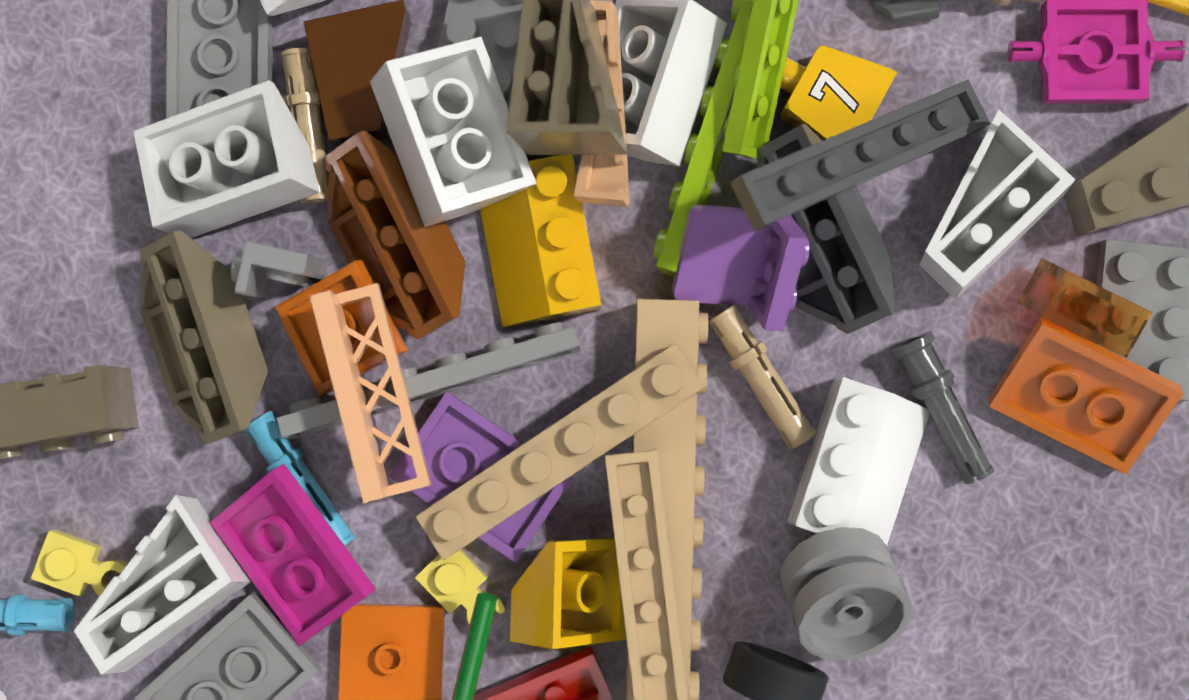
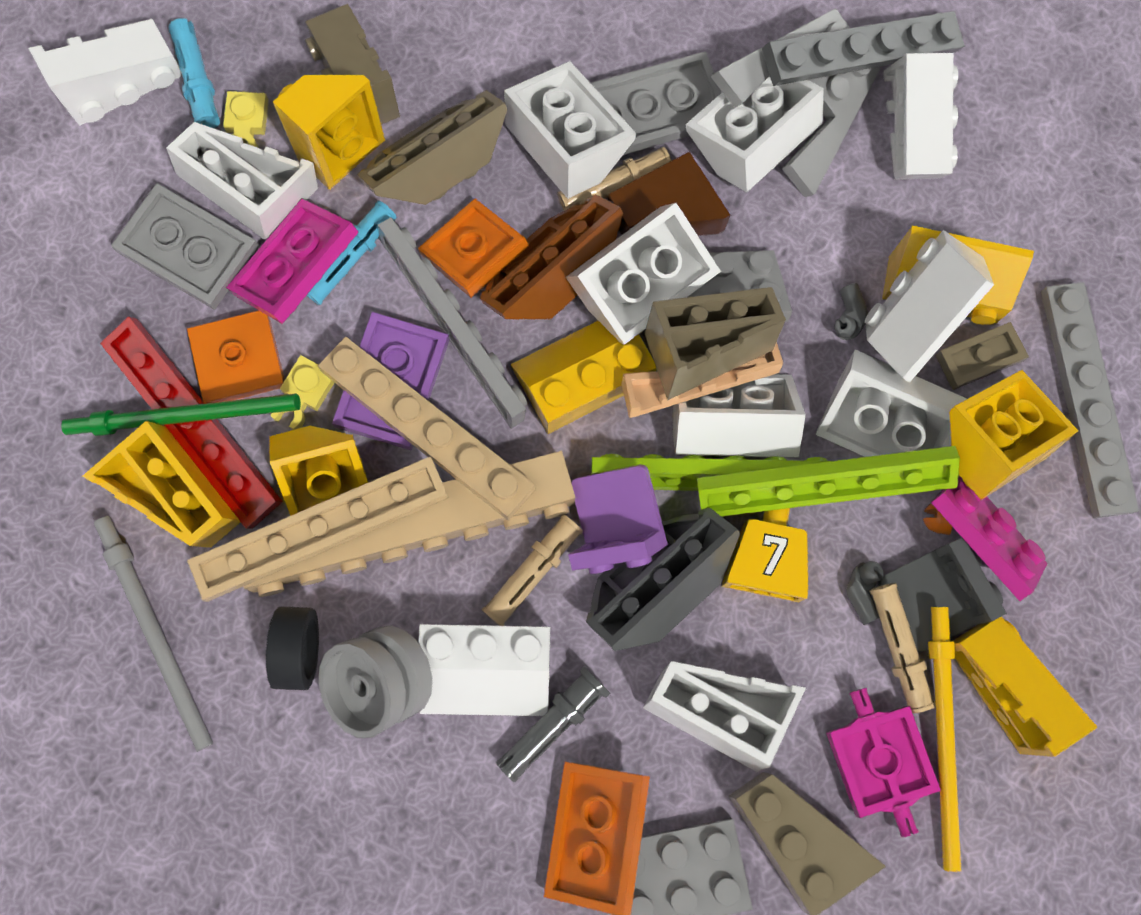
camera: 70 degrees right, 10 degrees down
(132, 460) = (330, 122): none -> yellow slope
(261, 263) = (498, 175): light grey bracket -> none
(351, 396) = (421, 259): light nougat fence -> none
(858, 155) = (730, 582): dark grey plate -> none
(1084, 308) = (669, 814): clear orange slope -> none

